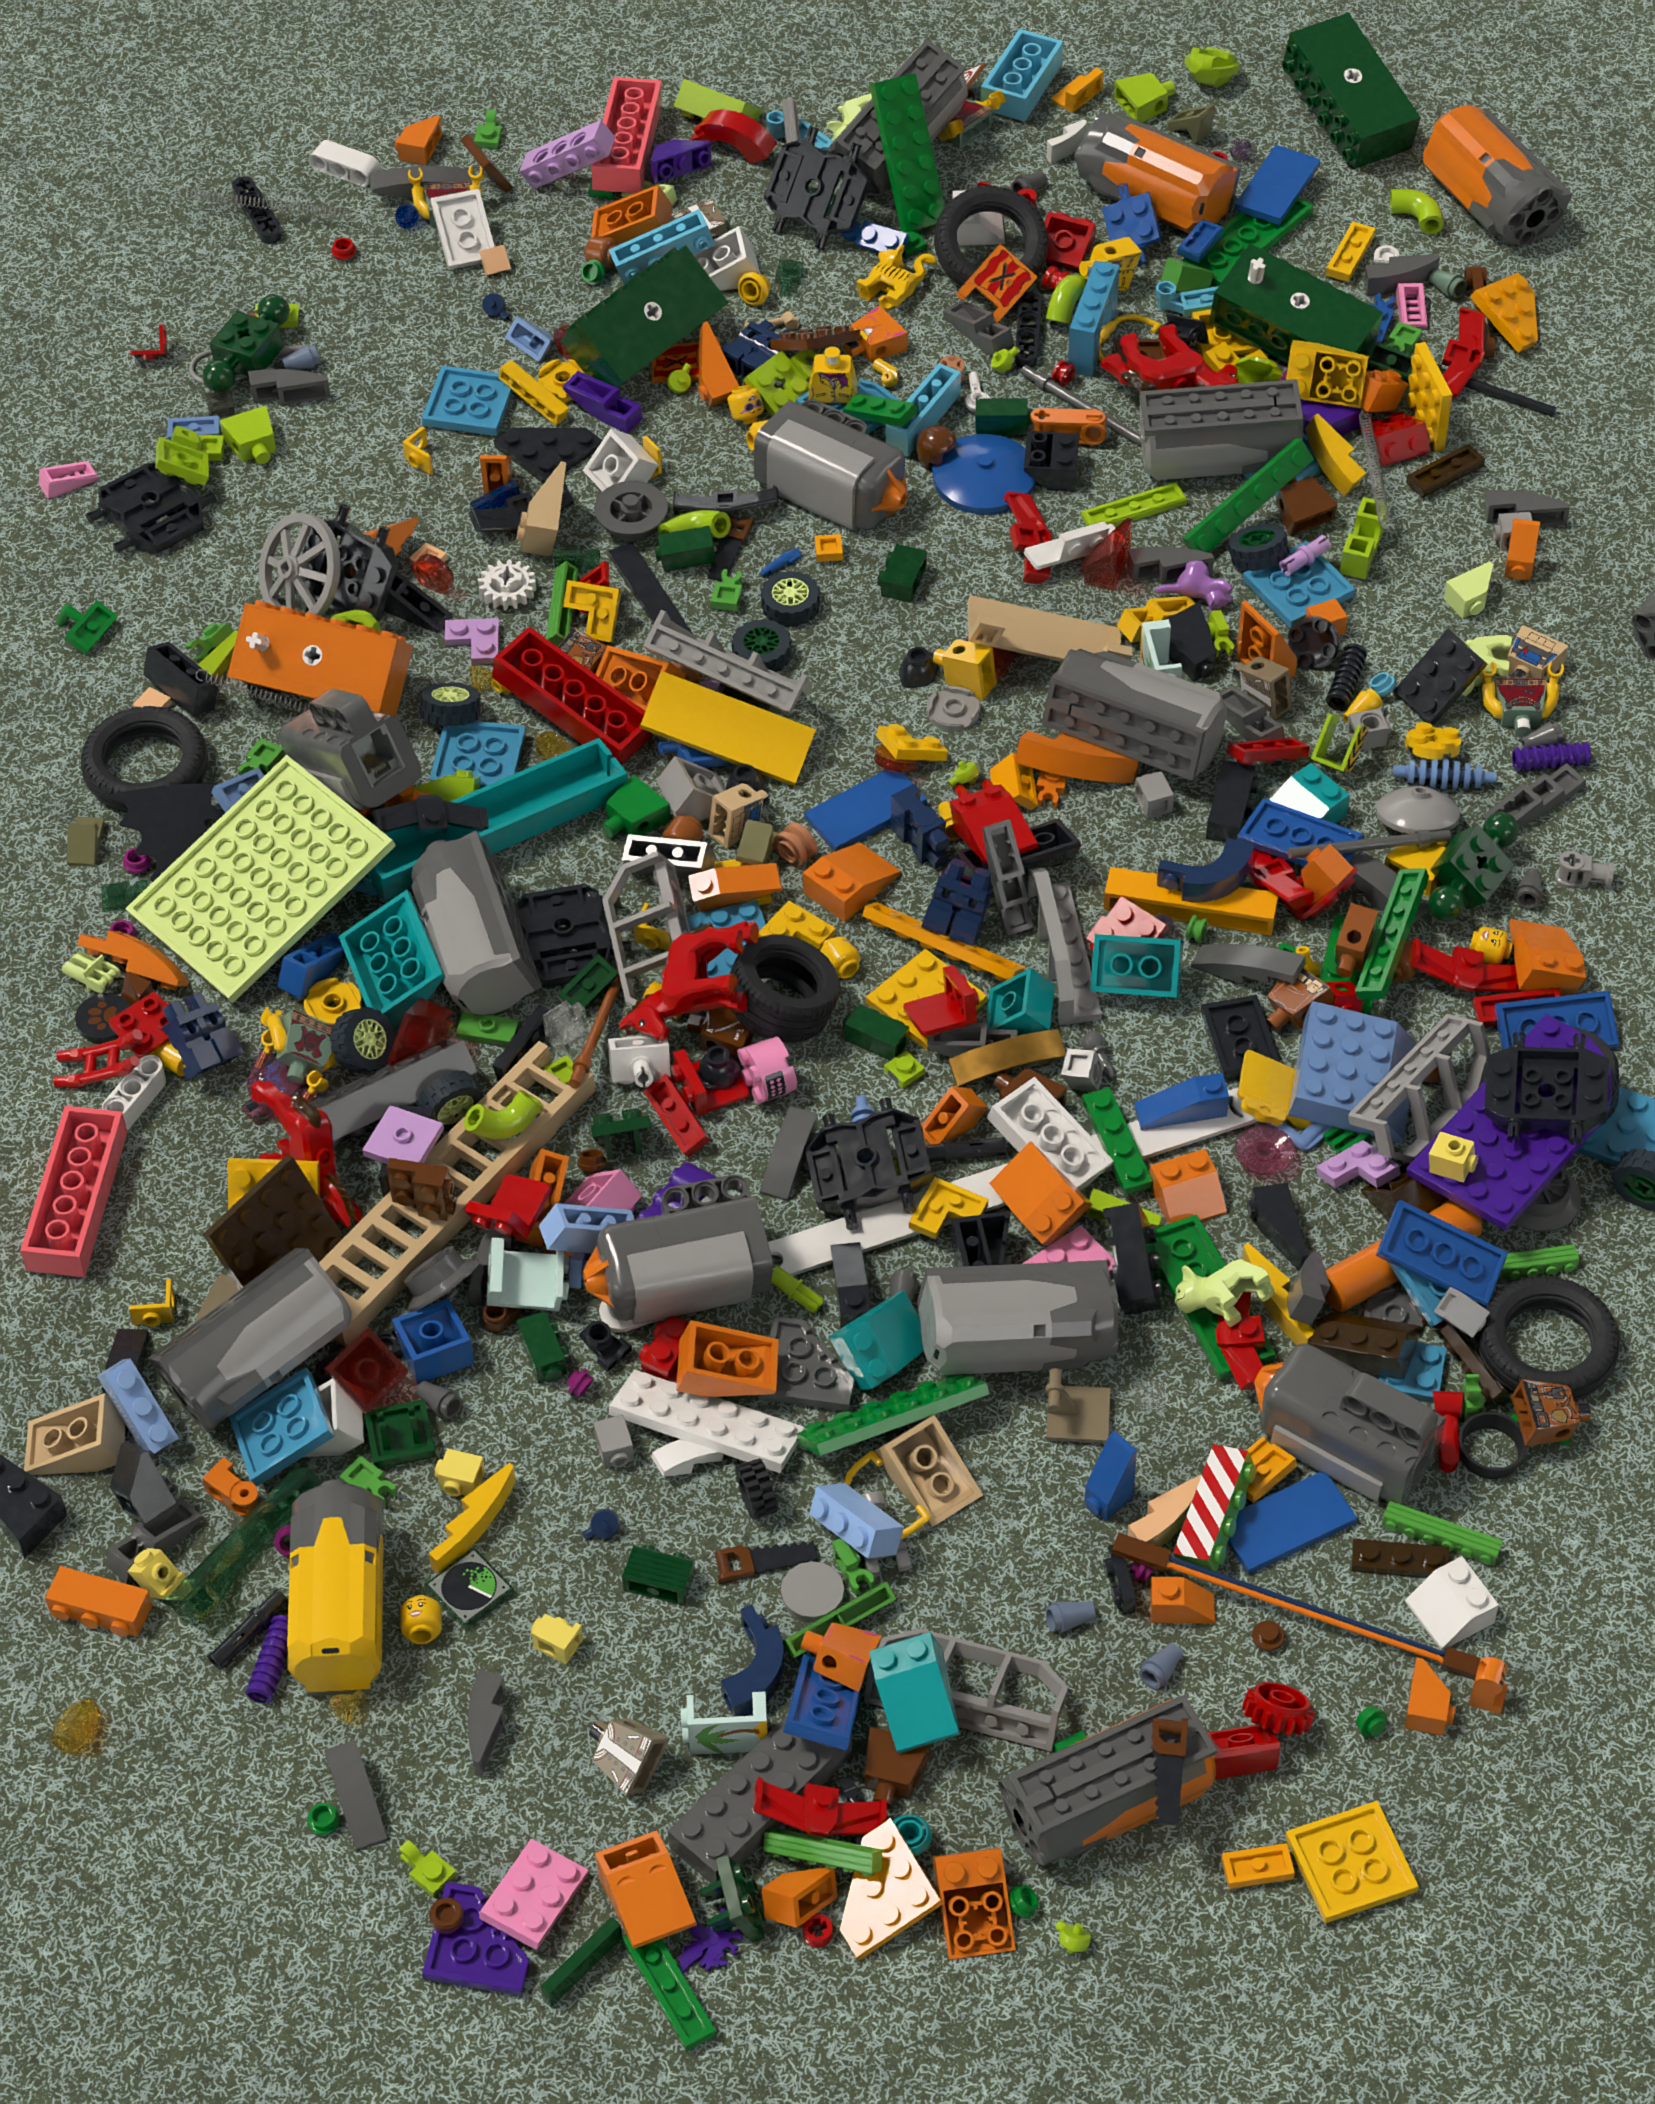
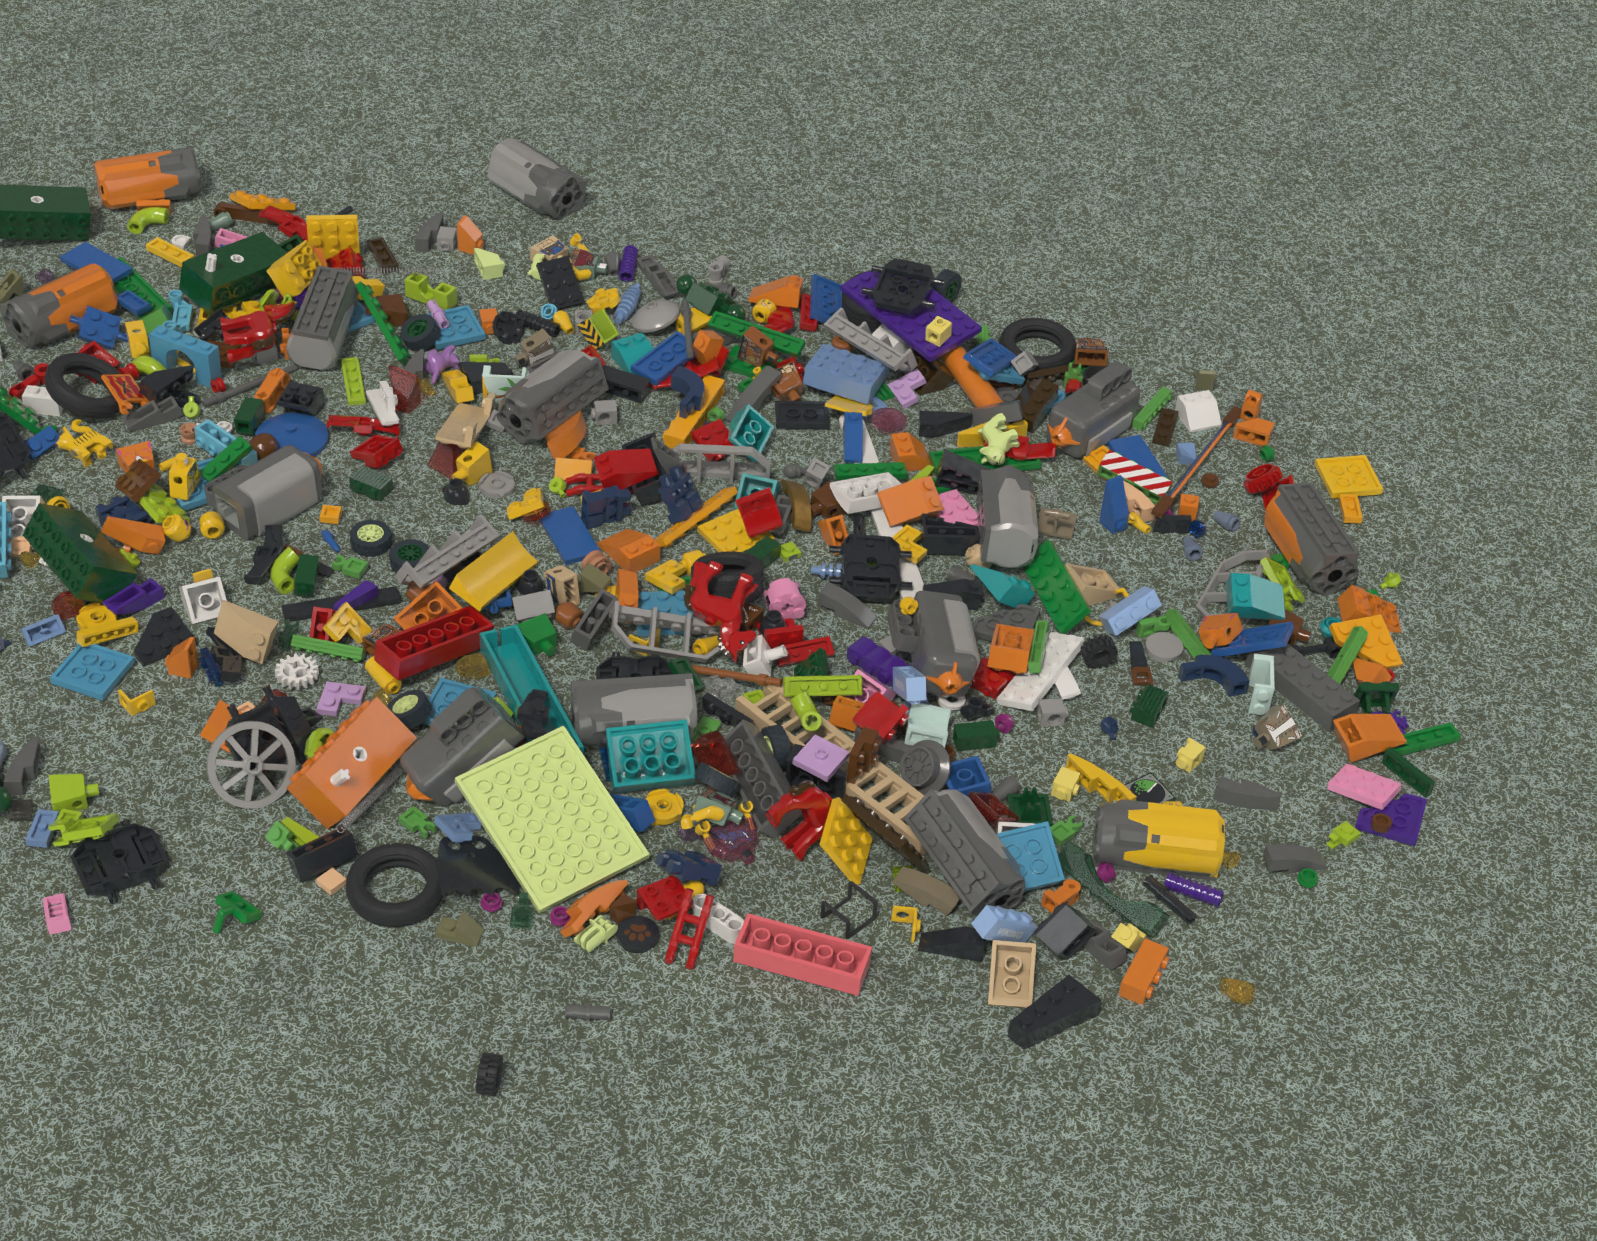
camera: 85 degrees left, 10 degrees down
(169, 1269) = (848, 934): none -> black piece
(576, 1133) = (823, 685): none -> lime tile
(631, 510) = (256, 594): dark grey wheel -> none
(652, 604) = (358, 595): none -> dark purple piece
(721, 1189) = (905, 603): none -> yellow plate
(738, 1400) = (1038, 647): none -> bright green piece
(787, 319) = (94, 500): tan piece -> none
(818, 1810) = (1323, 652): red plate -> none
(975, 563) = (377, 451): none -> red plate
(985, 1756) = (1279, 574): none -> lime plate
(1028, 312) = (164, 382): none -> black slope
(1119, 1521) = (1137, 522): none -> yellow arm
(1121, 1620) = (1197, 528): none -> clear blue plate
(1142, 584) = (425, 387): none -> clear yellow rock
(1169, 1768) = (1322, 498): black piece -> none
(1261, 639) = (507, 338): orange slope -> none
(1329, 1592) = (1185, 453): none -> medium blue slope
(1452, 213) = (142, 204): none -> orange plate
(1561, 1603) = (1204, 379): none -> olive slope

